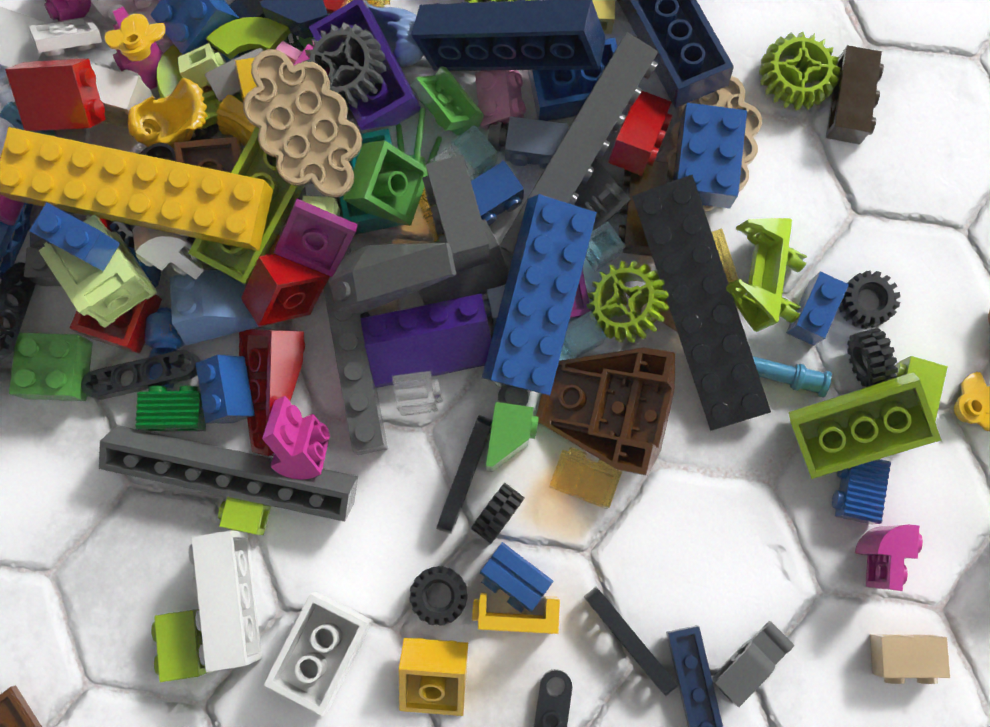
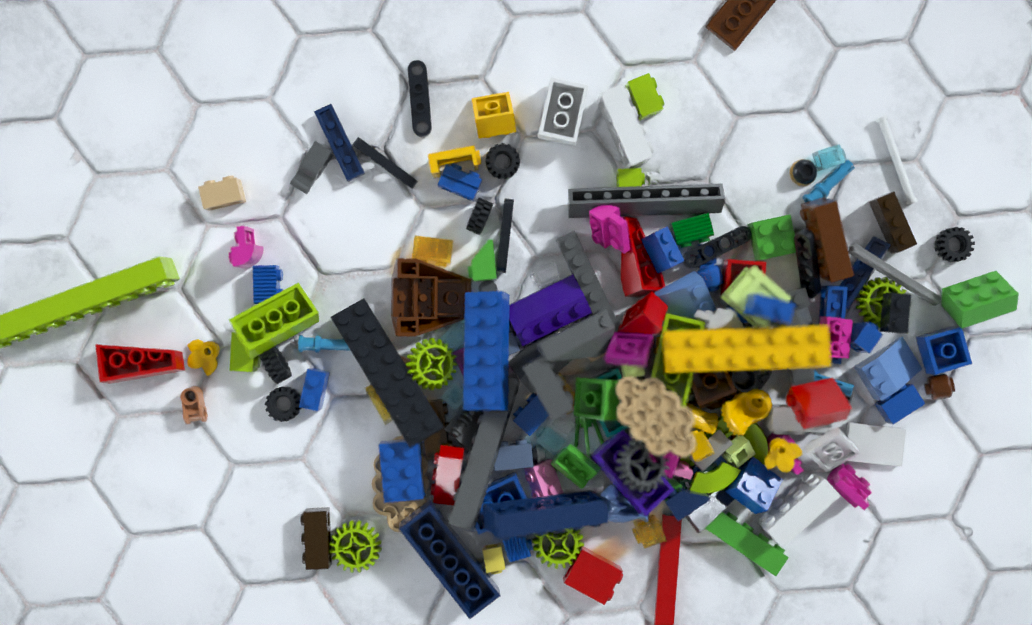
camera: 165 degrees right, 10 degrees up
(767, 273) = (349, 384): lime hose -> none

